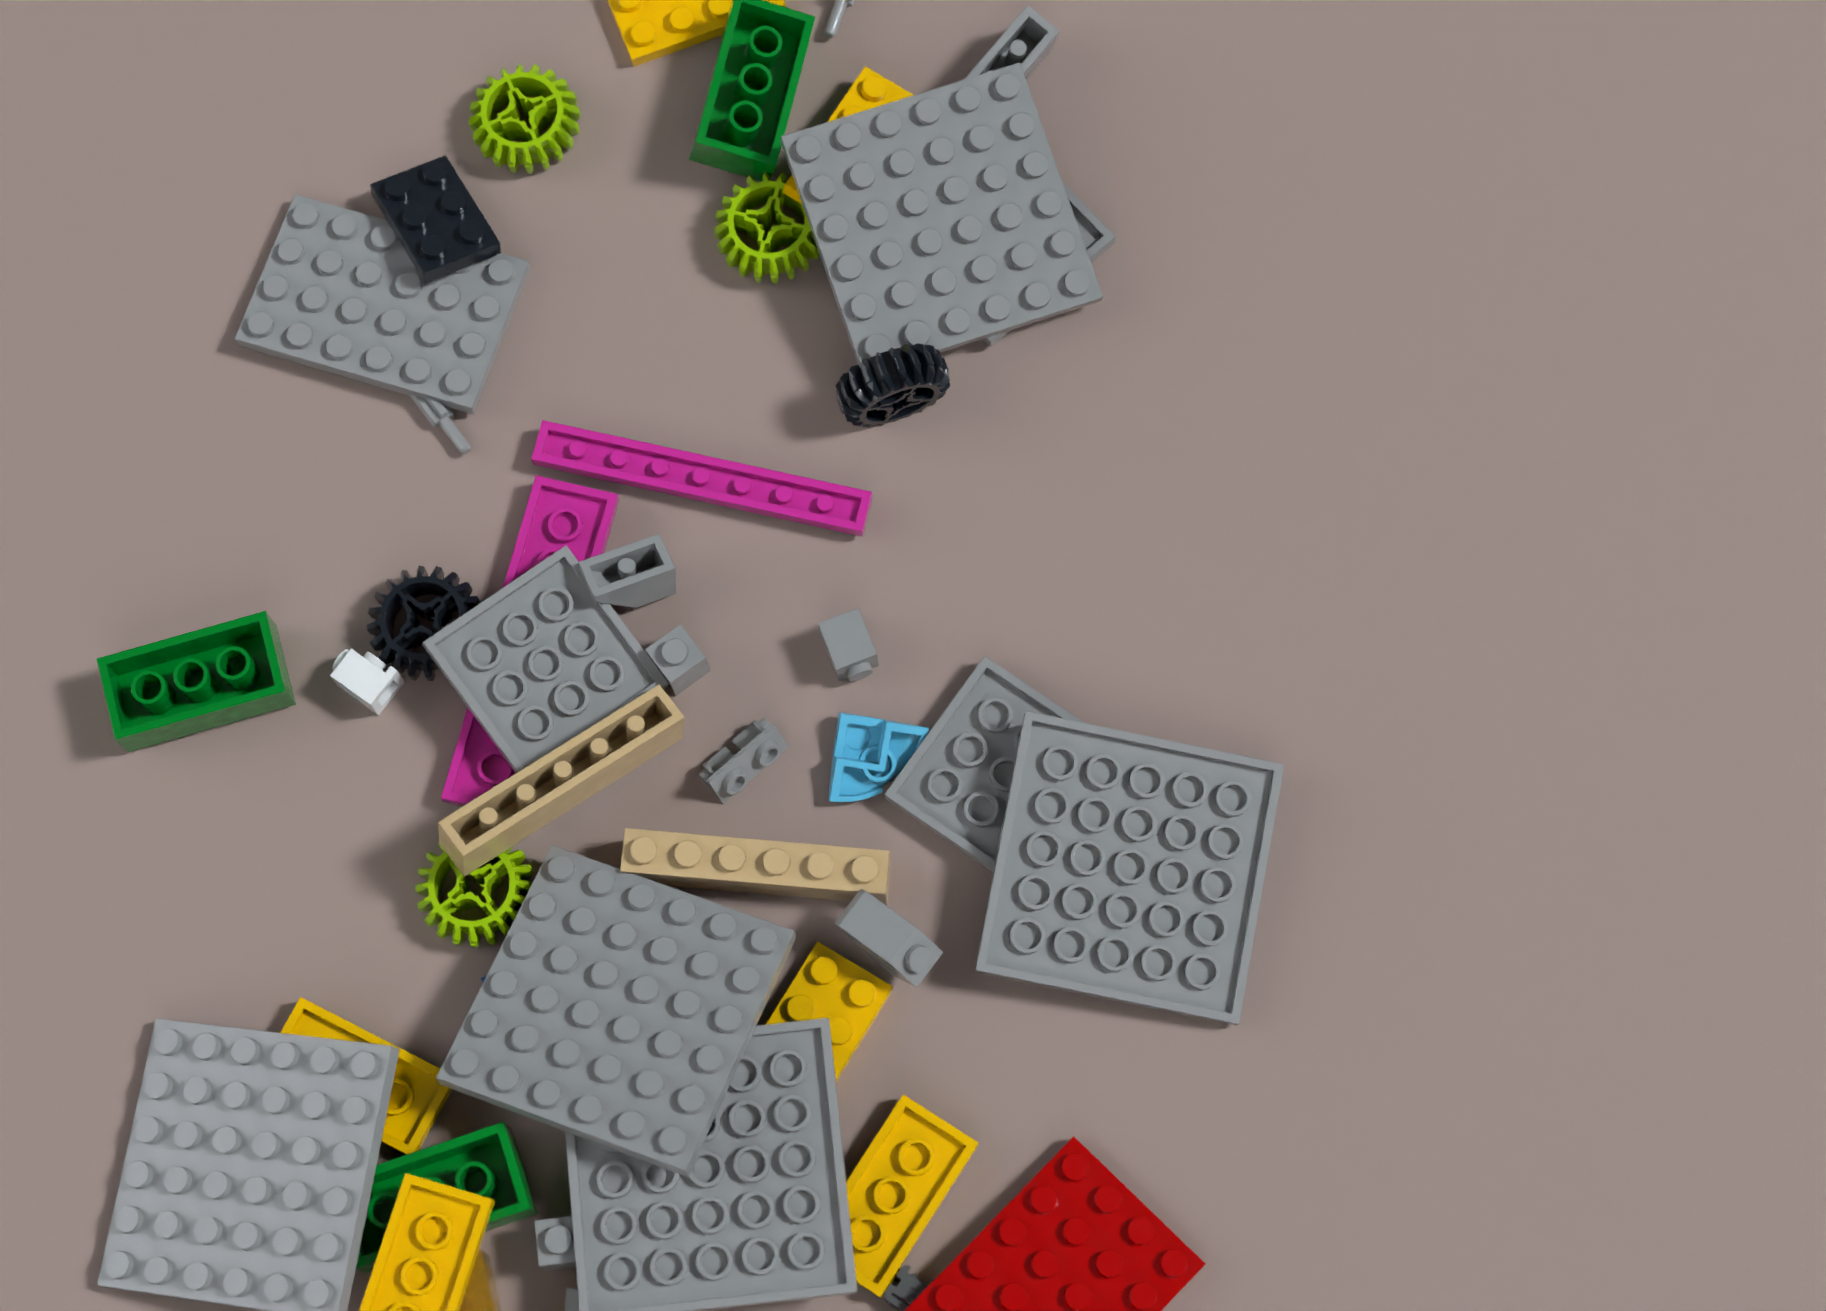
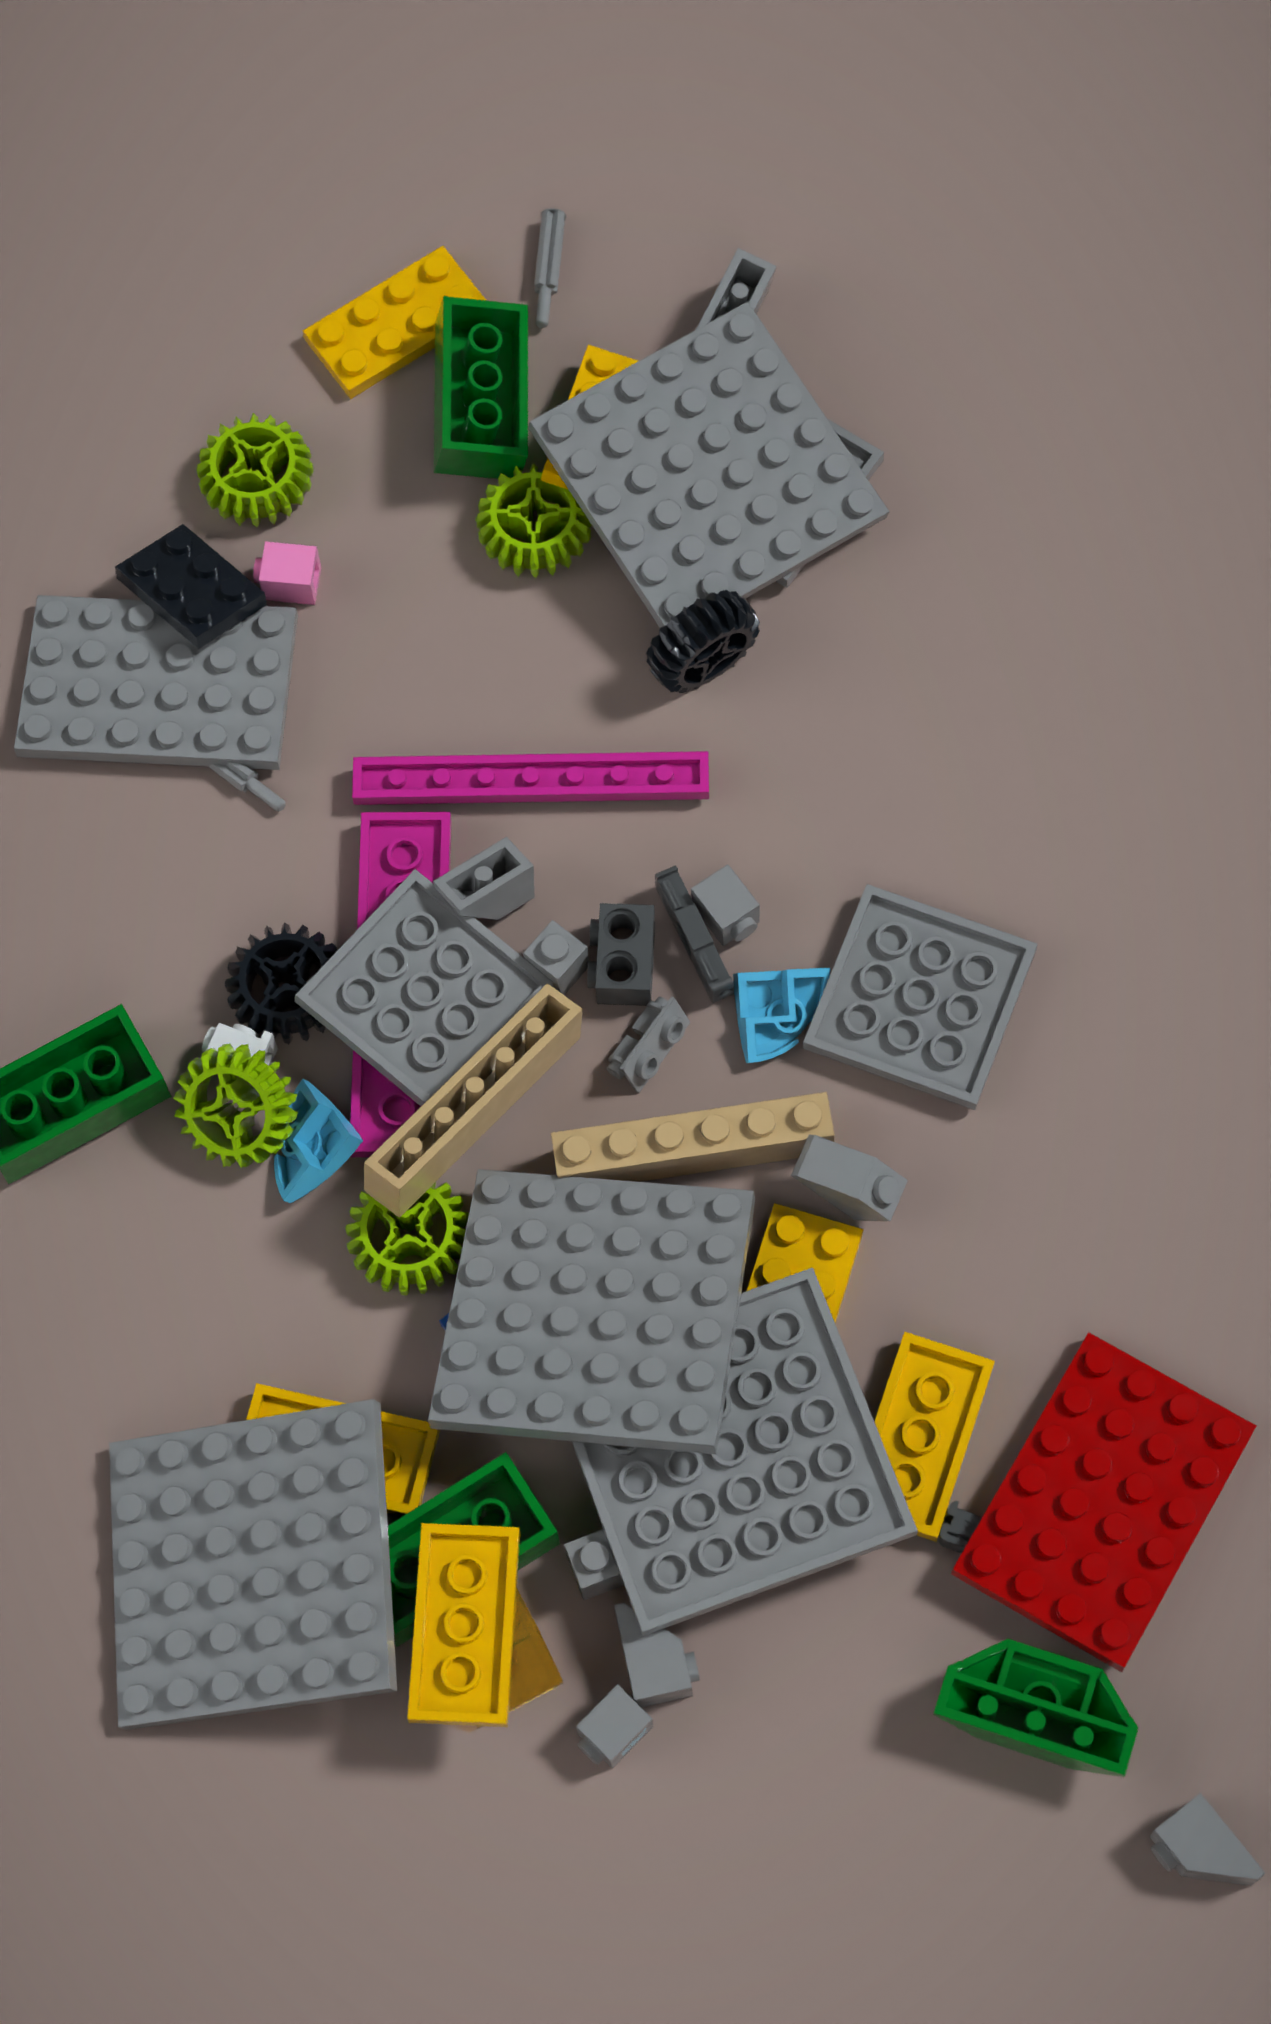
camera: 15 degrees left, 5 degrees down
(356, 719) = (236, 1138): none -> lime gear
(412, 780) = (317, 1145): none -> medium azure brick
(529, 226) = (288, 572): none -> bright pink brick
(751, 671) = (628, 954): none -> dark grey brick
(812, 665) = (694, 934): none -> dark grey piece
(1130, 868) = (1072, 1055): light grey plate -> none

